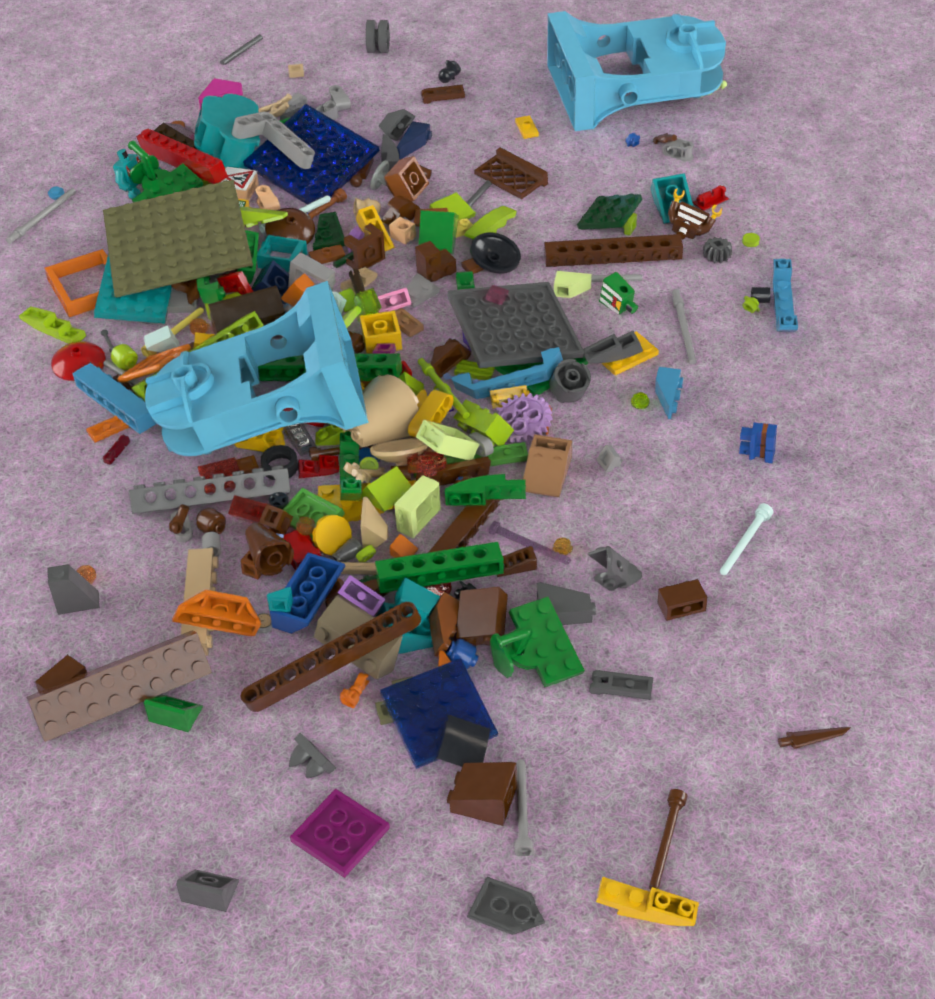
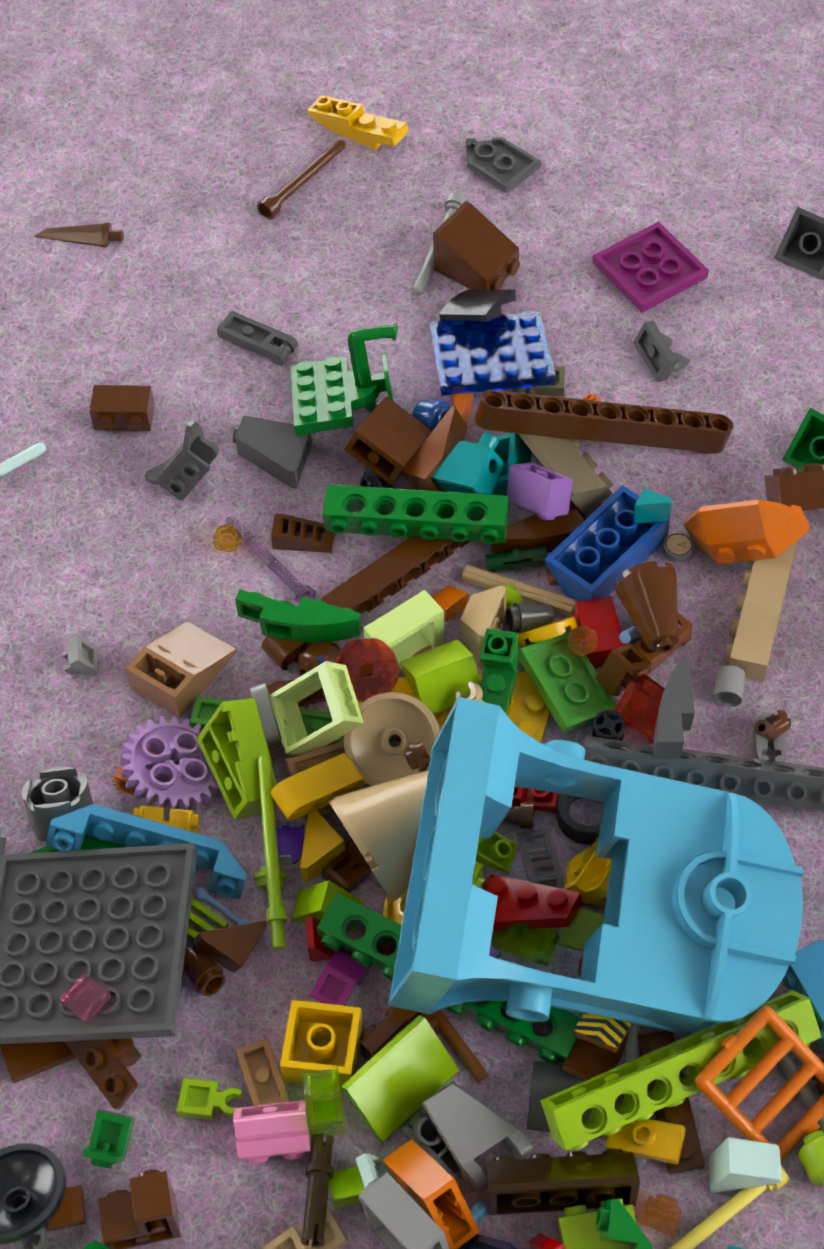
camera: 160 degrees left, 10 degrees up
(210, 521) = (722, 724): reddish brown head -> none
(237, 486) = (674, 714): none -> dark grey slope
(380, 437) = (417, 756): none -> reddish brown plate
(421, 290) = (199, 1169): light grey wing -> none
(428, 308) = (202, 1098): none -> lime plate

